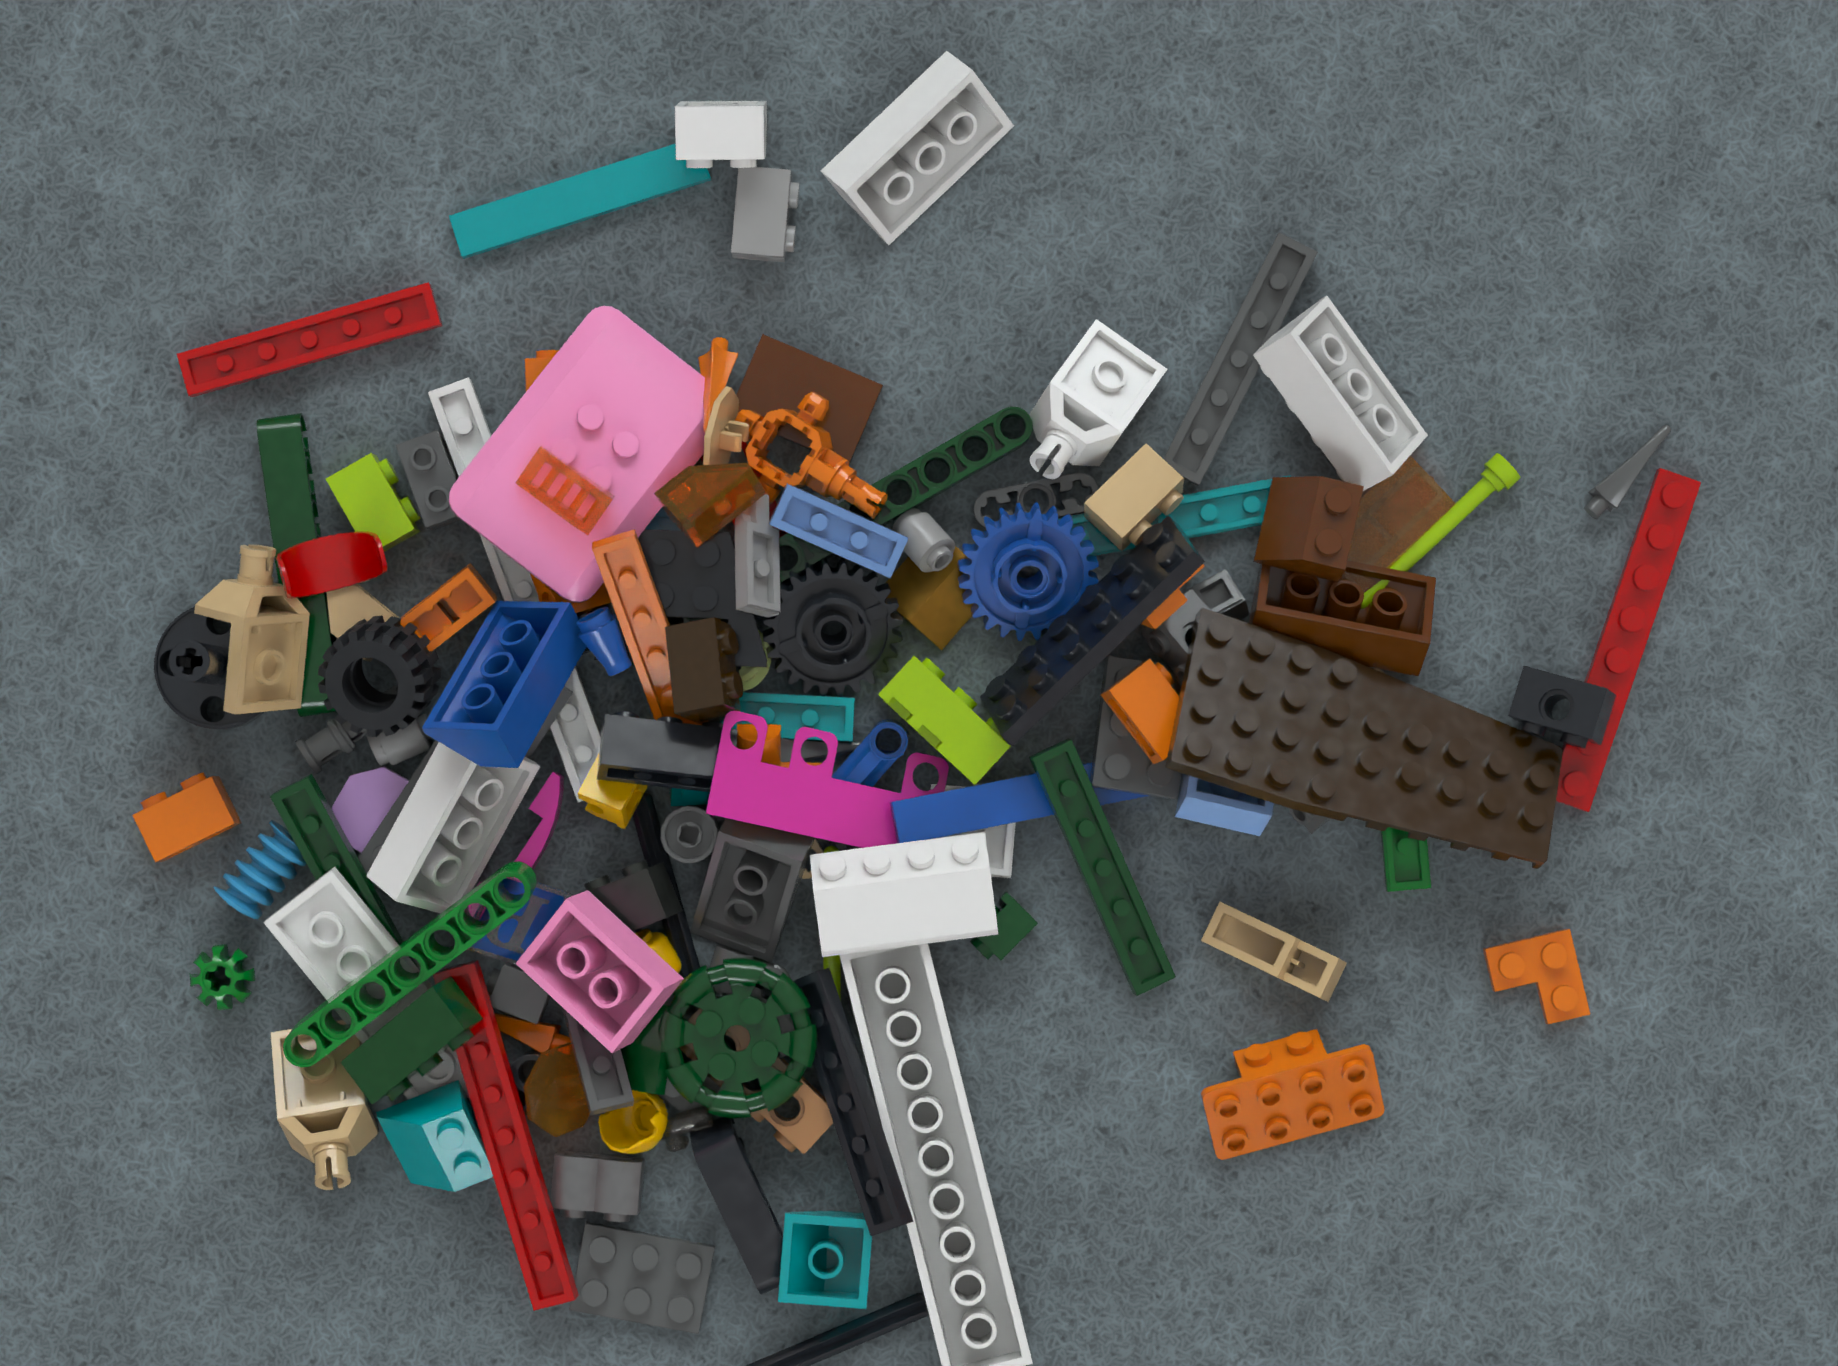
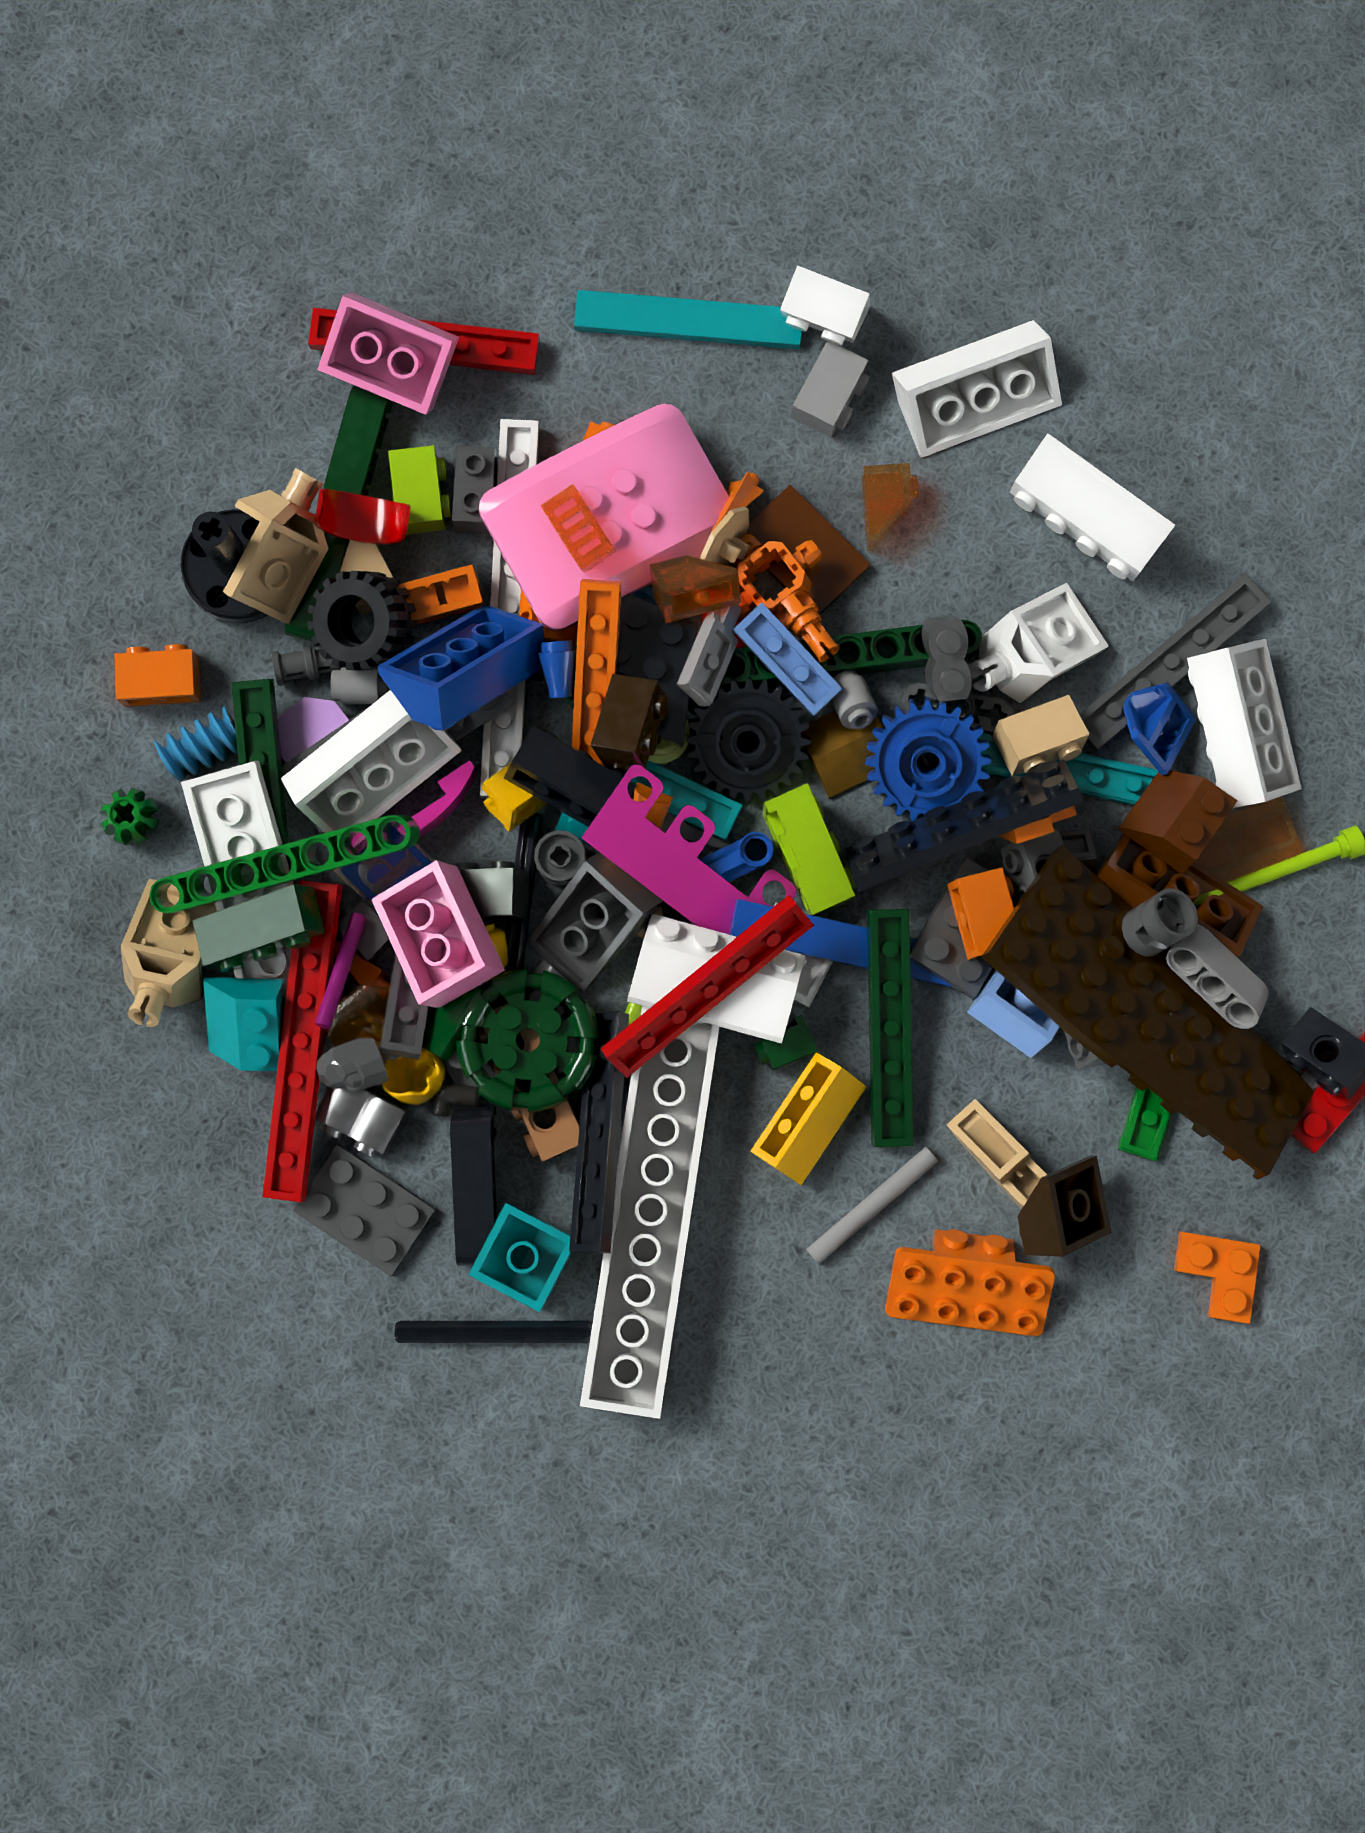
camera: 25 degrees right, 5 degrees down
(281, 376) = (387, 353): none -> bright pink brick
(514, 1048) = (340, 970): none -> magenta bar
(569, 1140) = (352, 1065): none -> dark grey rock
(870, 308) = (886, 499): none -> clear orange slope
(899, 911) = (707, 986): none -> red plate
(1003, 461) = (946, 670): none -> flat silver brick
(1057, 996) = (808, 1118): none -> yellow brick
(1089, 234) = (1090, 508): none -> white slope
(1158, 1055) = (872, 1205): none -> light grey piece
(1251, 433) = (1158, 723): none -> blue slope
(1333, 650) = (1159, 922): none -> dark grey wheel
(1357, 982) = (1065, 1211): none -> dark brown slope
(1415, 676) = (1219, 978): none -> light grey beam

